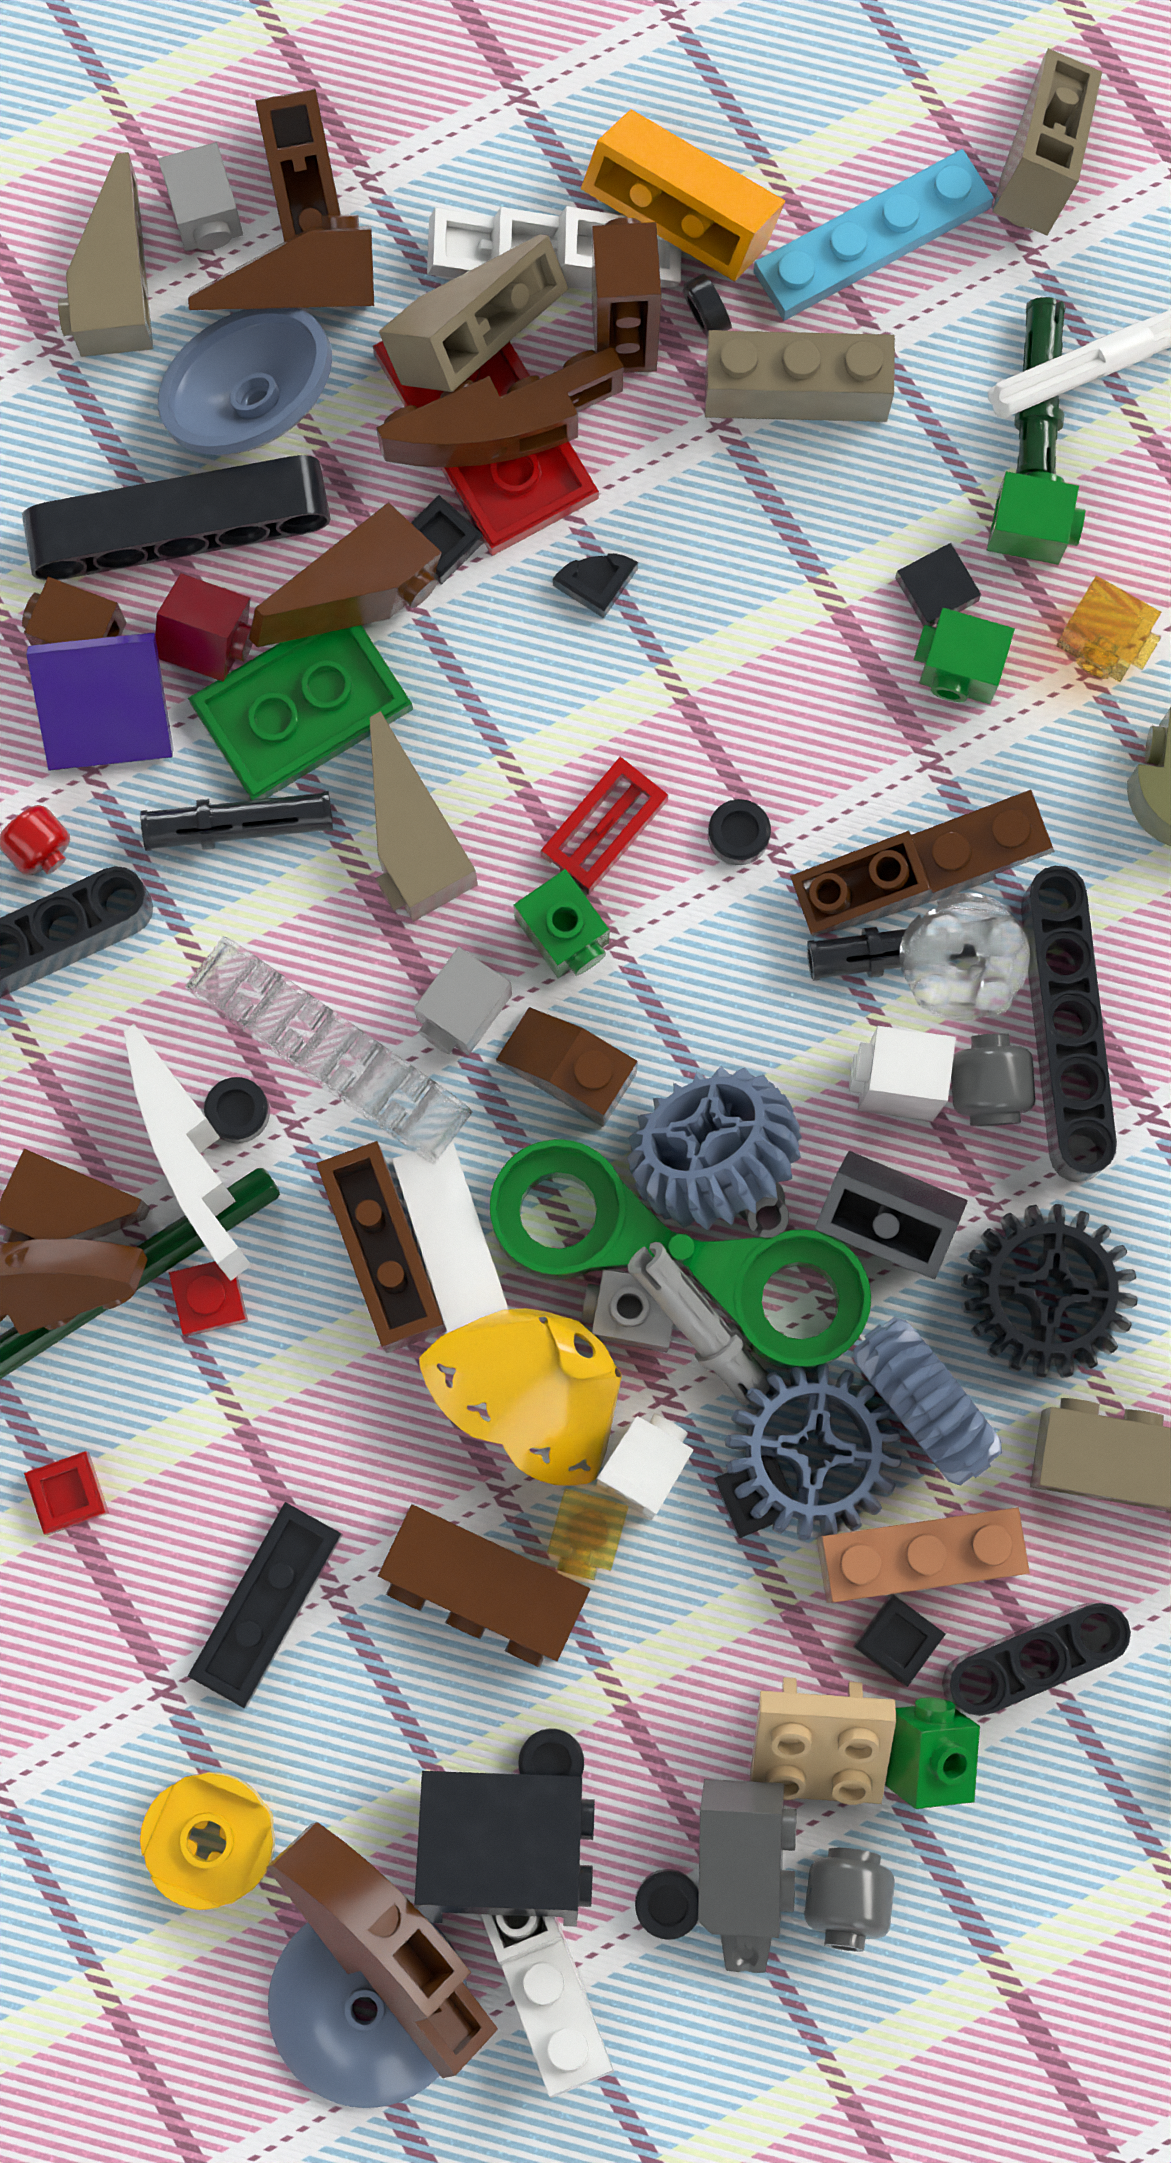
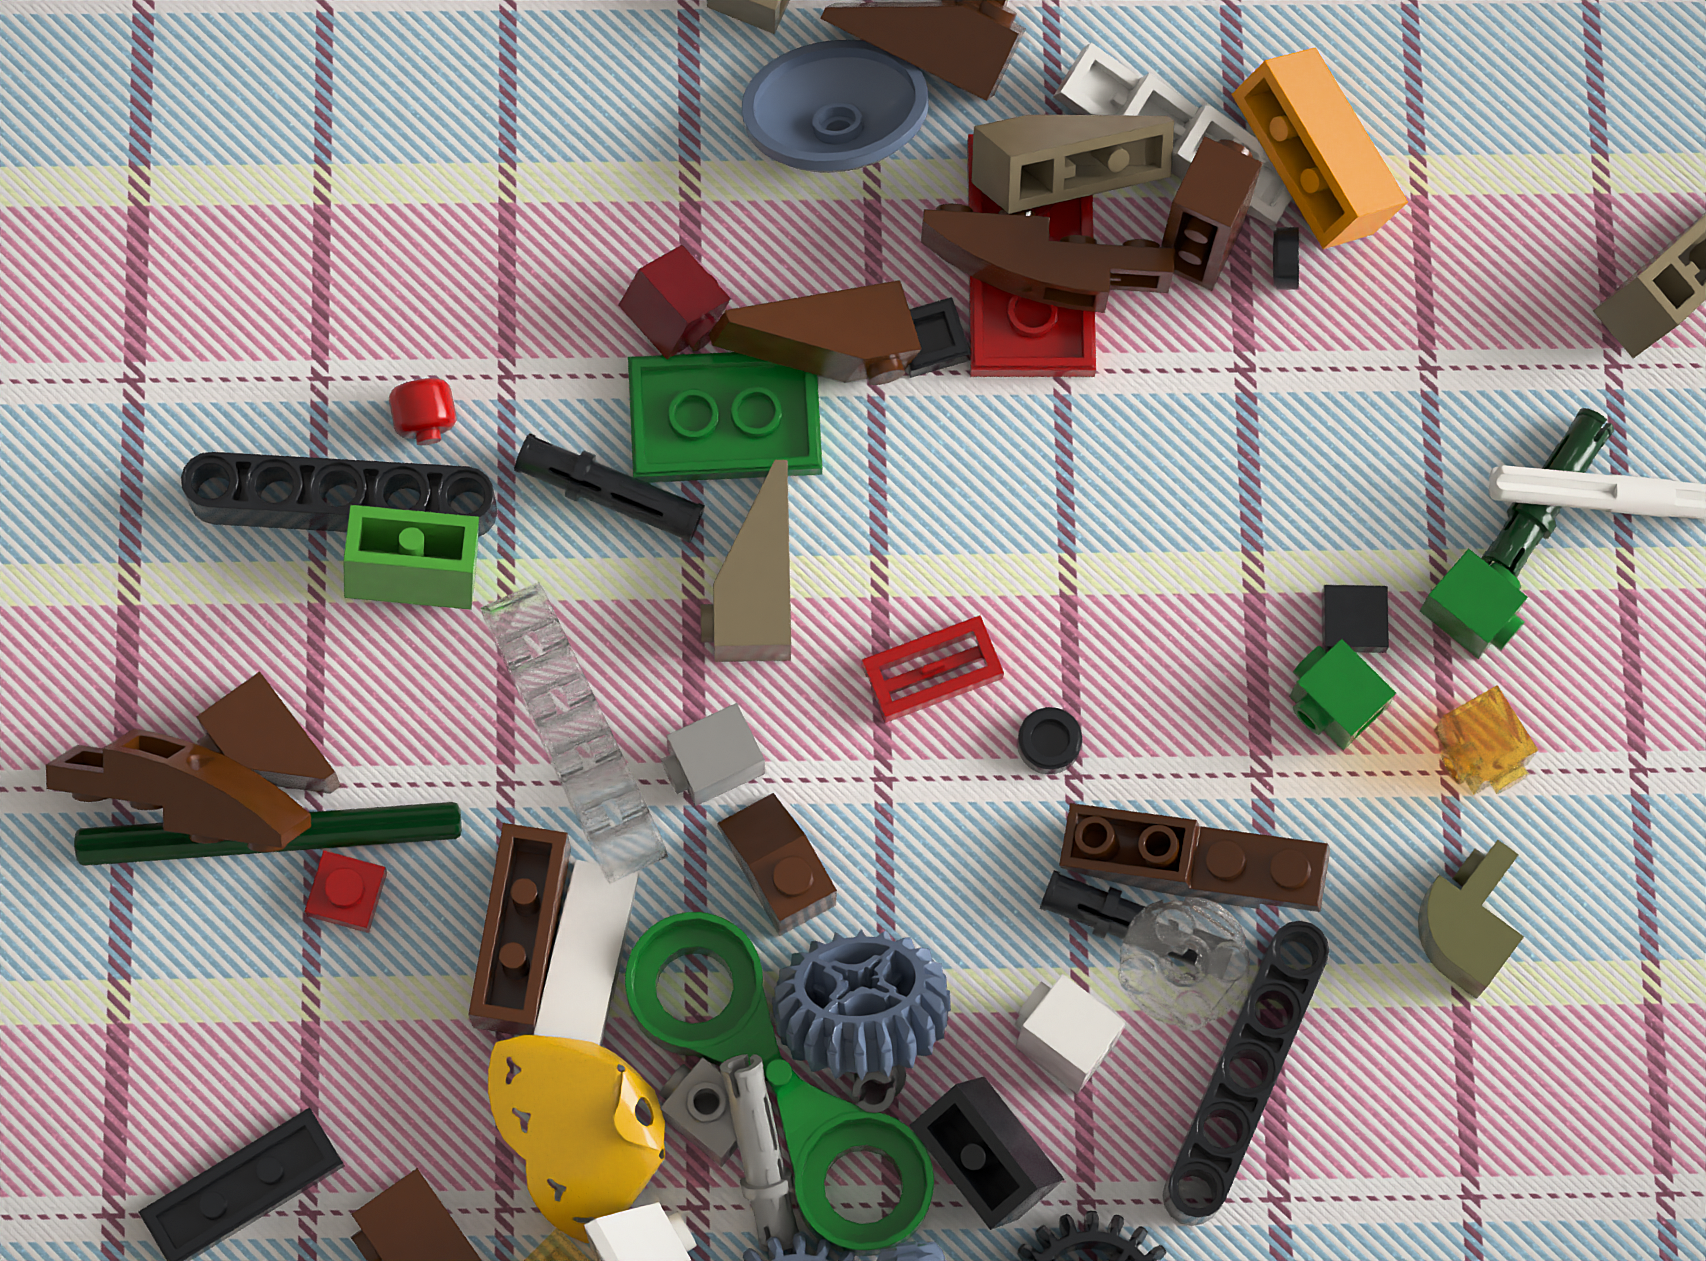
camera: 25 degrees right, 5 degrees down
(66, 1493) = (125, 993): red tile -> none
(70, 614) = (562, 241): reddish brown brick -> none
(99, 975) = (410, 557): none -> bright green brick
(100, 701) = (548, 319): dark purple tile -> none
(176, 517) = (708, 193): black beam -> none
(178, 1137) = (397, 735): white slope -> none
(237, 1109) = (464, 741): black tile -> none
(563, 925) = (843, 737): green brick -> none
(596, 580) = (1050, 448): black tile -> none
(799, 375) = (1332, 363): dark tan brick -> none
(873, 234) = (1476, 273): medium azure plate -> none
(993, 1081) = (1148, 1086): dark grey head -> none

